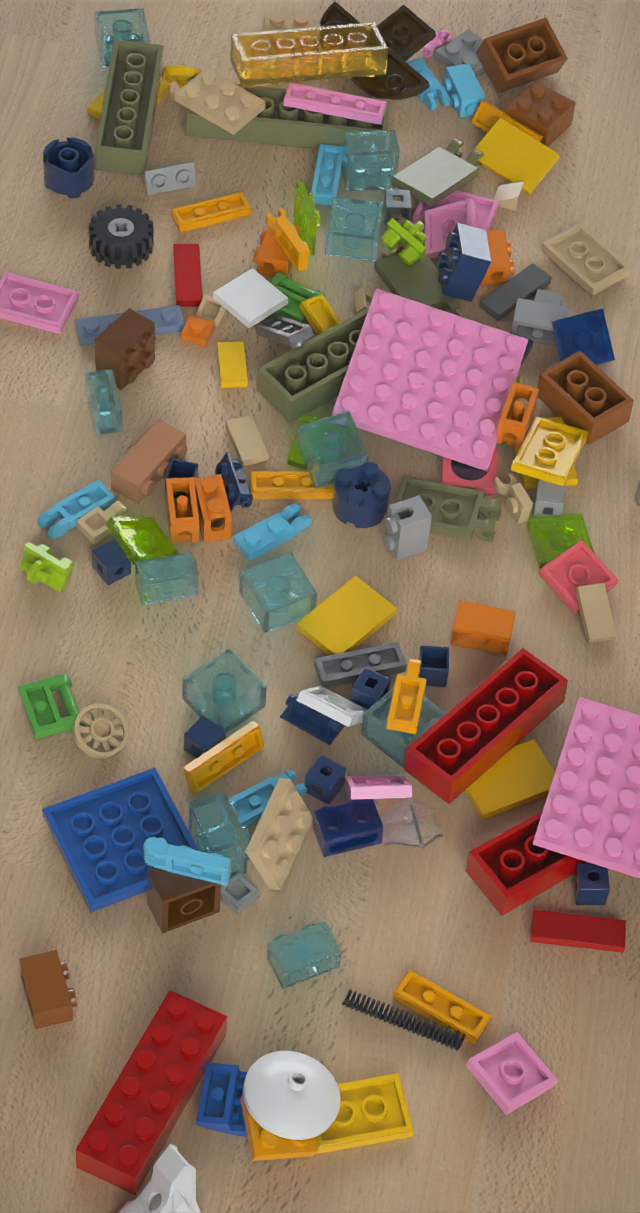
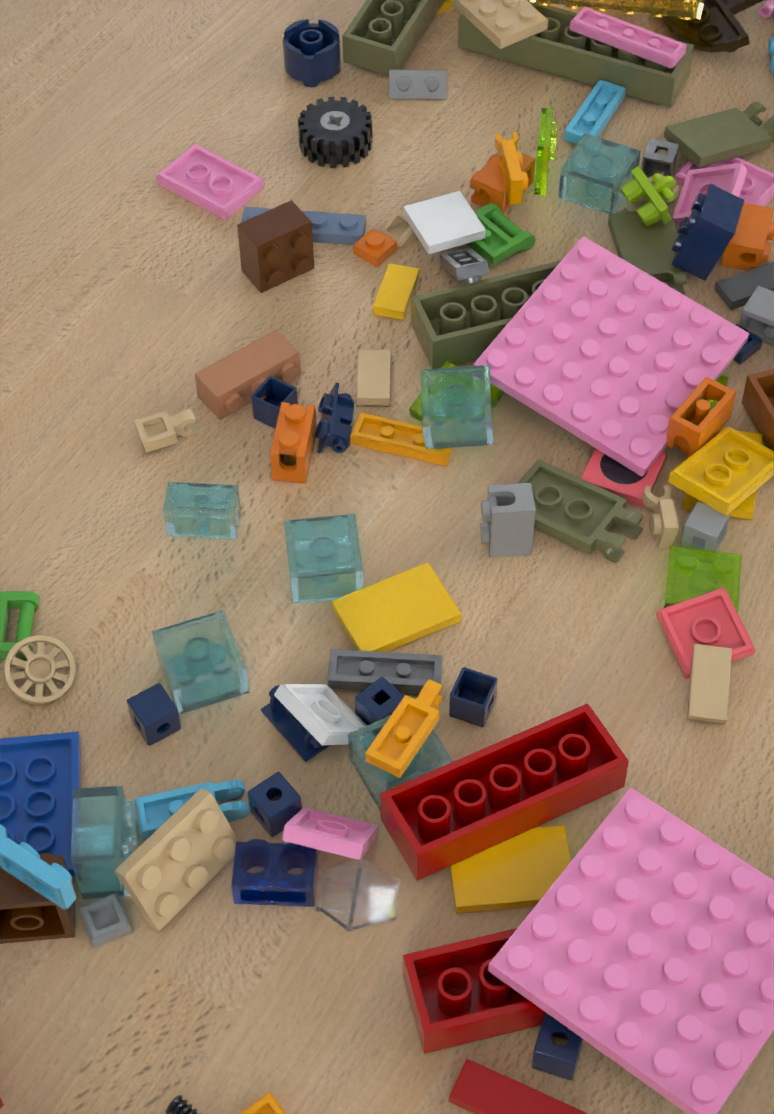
camera: 25 degrees right, 0 degrees up
(44, 567) = (72, 464): lime hips -> none
(74, 508) = (141, 404): medium azure hinge -> none
(103, 402) = (226, 298): clear light blue brick -> none
(111, 562) = (150, 475): dark blue piece -> none
(140, 538) = (193, 456): clear neon green plate -> none
(182, 513) = (250, 440): orange brick -> none
(187, 275) = (391, 186): red tile -> none
(211, 212) = (449, 127): light orange tile -> none
(223, 757) = (166, 741): light orange tile -> none
(271, 532) = (354, 487): medium azure hinge -> none
(304, 954) = (142, 1028): clear light blue brick -> none
(319, 314) = (516, 253): yellow tile -> none
(361, 495) = (471, 465): dark blue brick -> none
(370, 160) = (645, 104): clear light blue brick -> none
(435, 88) = (756, 49): medium azure hinge -> none
(483, 627) = (556, 665): orange brick -> none

